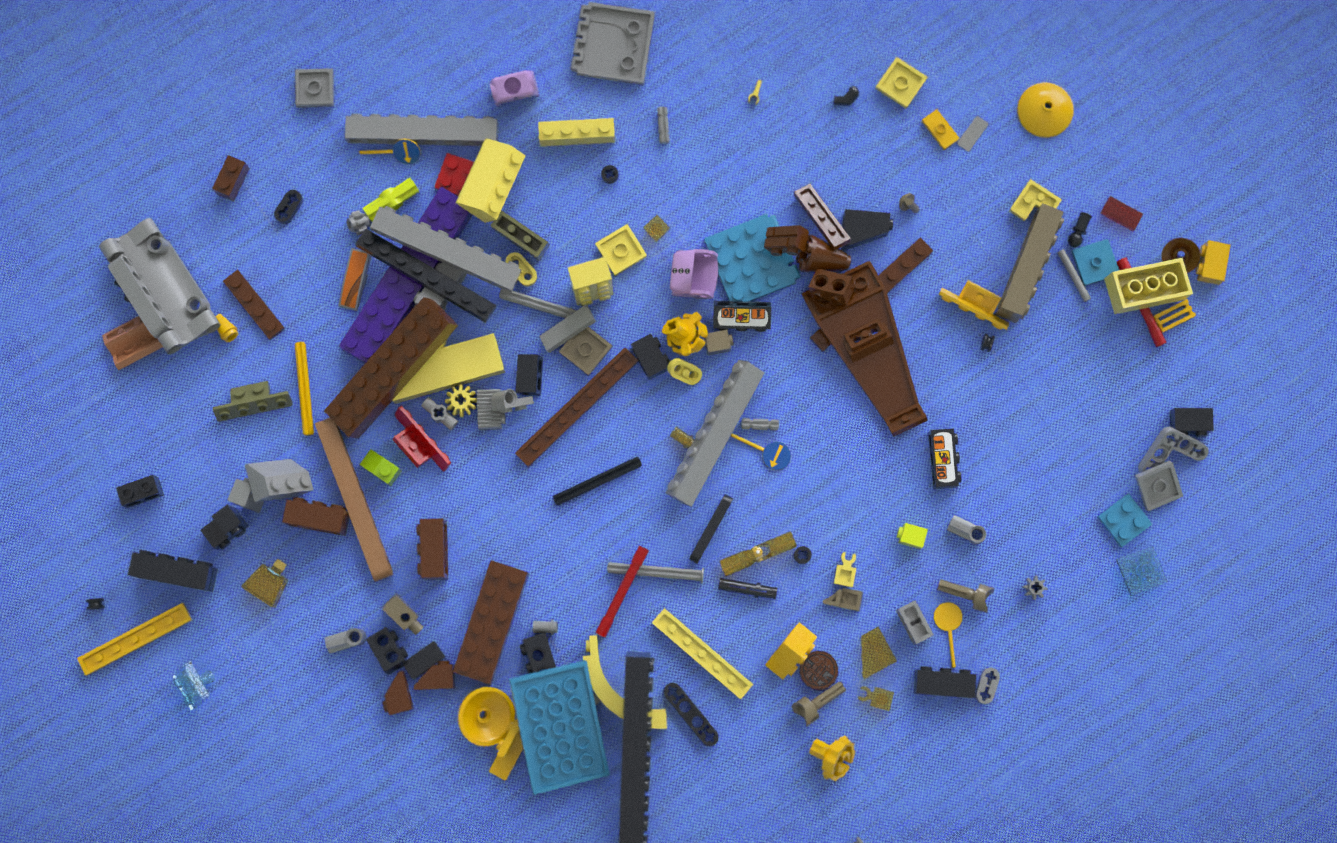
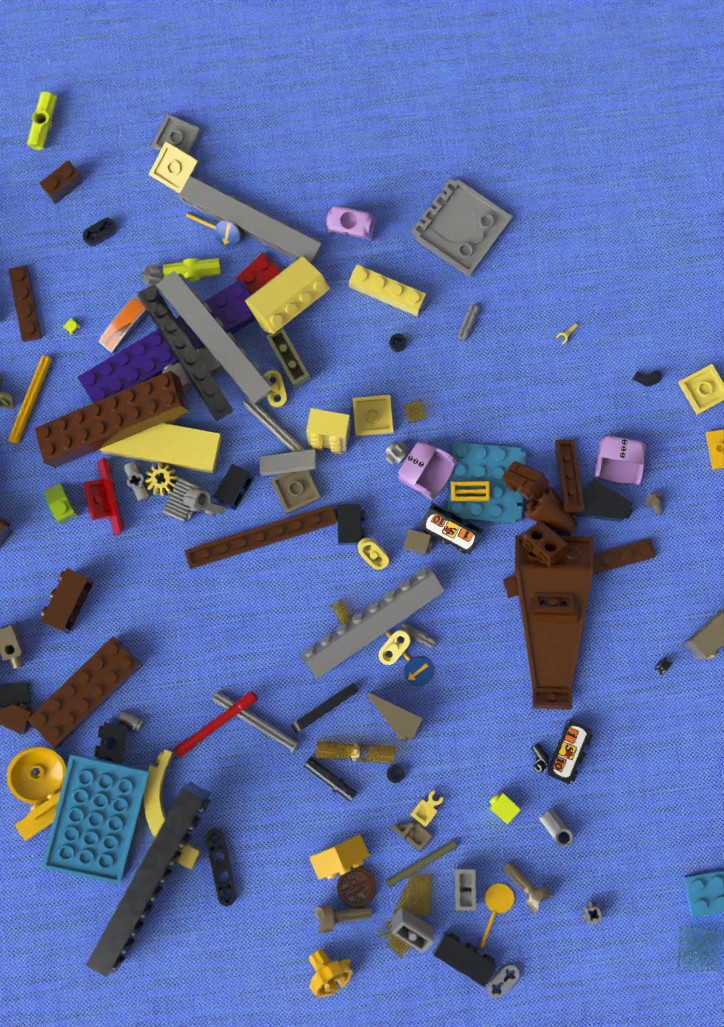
camera: 30 degrees right, 0 degrees up
(180, 121) = (44, 111): none -> neon yellow piece
(307, 304) = (71, 326): none -> neon yellow piece
(326, 115) = (173, 166): none -> light yellow plate
(354, 499) = (22, 521): medium nougat beam -> none
(597, 480) = (245, 612): black axle -> none
(659, 272) = (396, 452): none -> light grey gear
(683, 332) = (391, 517): yellow piece -> none
(702, 653) = (259, 817): light yellow plate -> none
(728, 281) = (474, 491): none -> yellow tile
(745, 443) = (395, 647): none -> light yellow plate
(780, 504) = (398, 719): none -> dark tan slope
(859, 181) = (620, 460): none -> lavender piece
(865, 621) = (421, 863): none -> olive bar
(887, 681) = (412, 930): none -> light grey brick
(923, 477) = (541, 758): none -> black arm
(977, 300) = (673, 623): yellow bracket -> none

